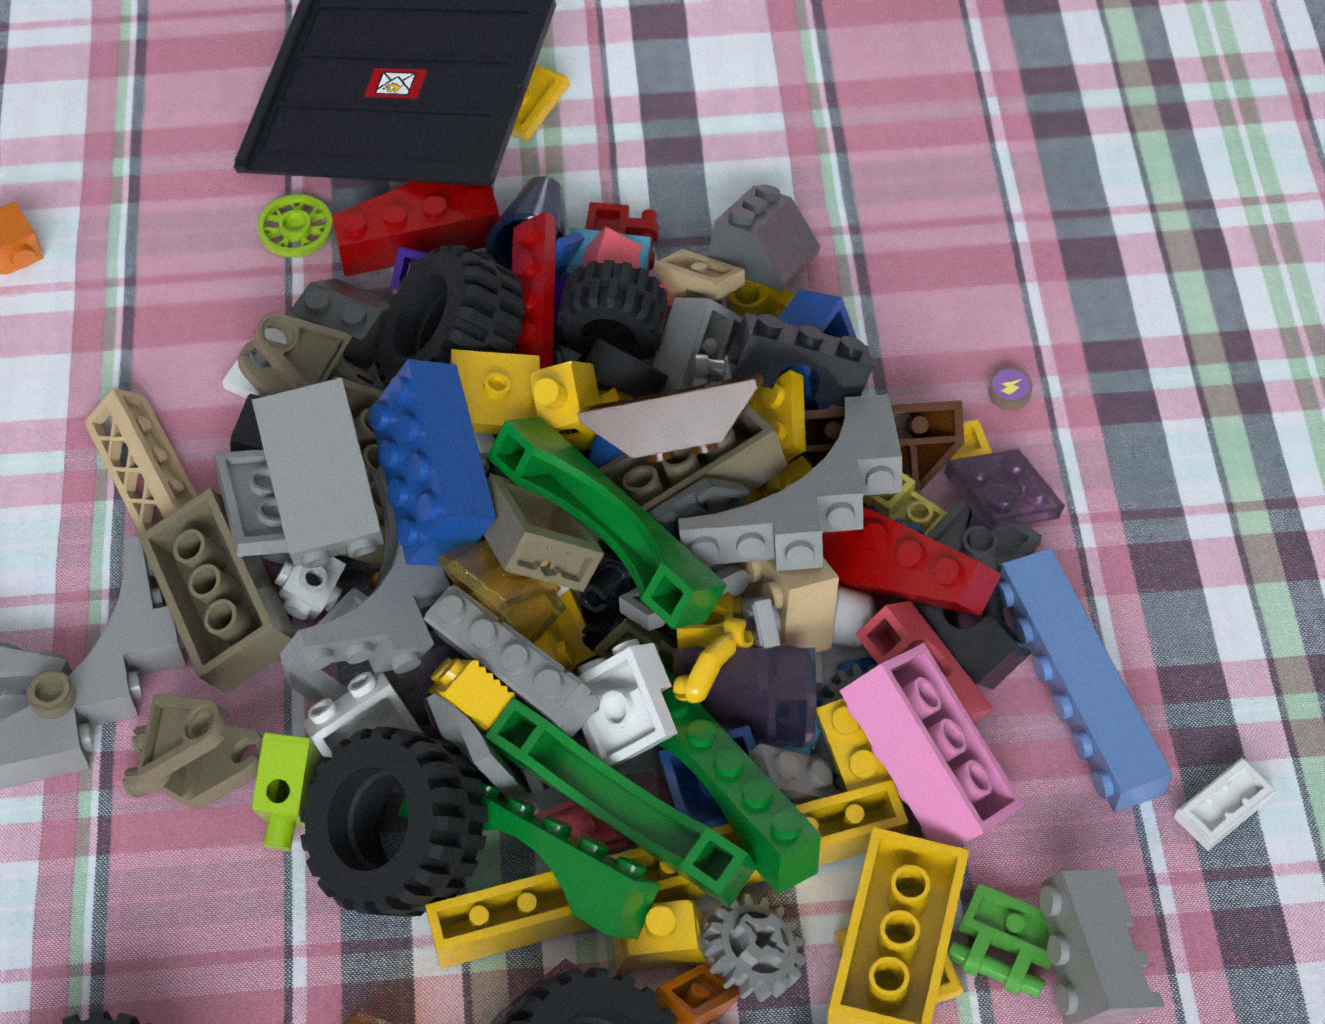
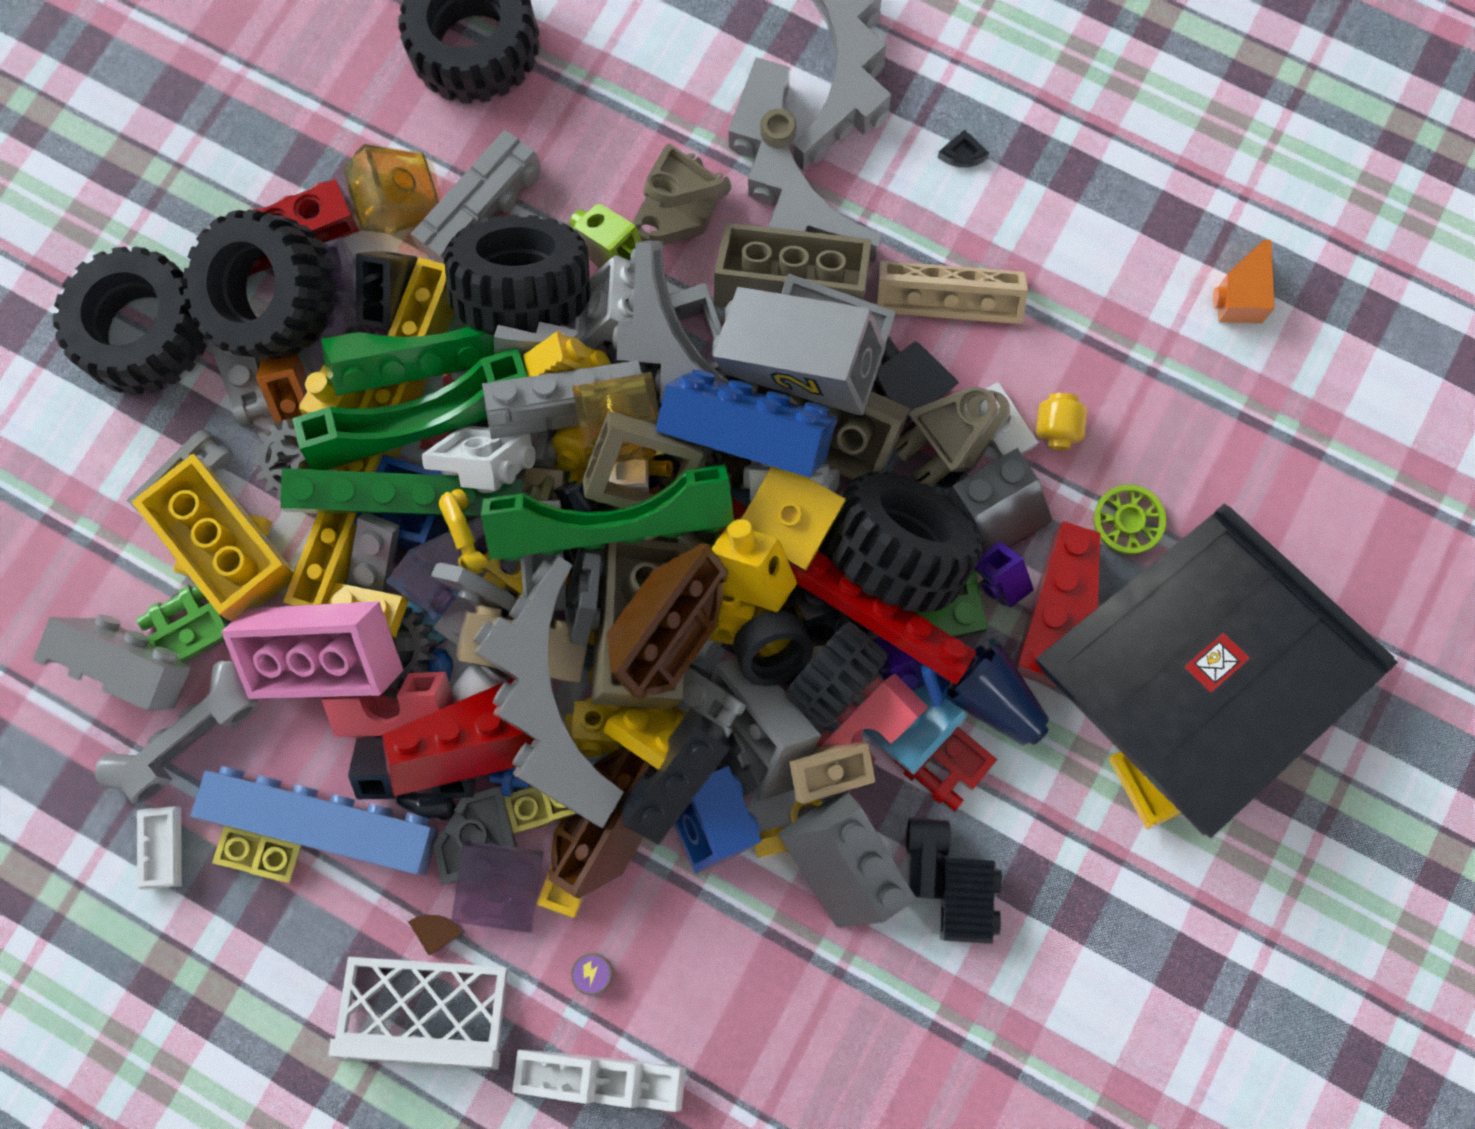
camera: 130 degrees right, 20 degrees up
(233, 308) = (1061, 421): none -> yellow head
(318, 969) = (480, 193): none -> light grey brick
(474, 970) = (381, 285): none -> black torso
(697, 213) = (927, 847): none -> black piece
(723, 166) = (969, 901): none -> black brick
(1083, 525) = (435, 931): none -> reddish brown tile
(1086, 333) = (599, 1080): none -> white slope
(1156, 709) = (256, 854): none -> light yellow slope
(1174, 867) = (144, 773): none -> light grey plate
(1193, 474) = (419, 1050): none -> white fence

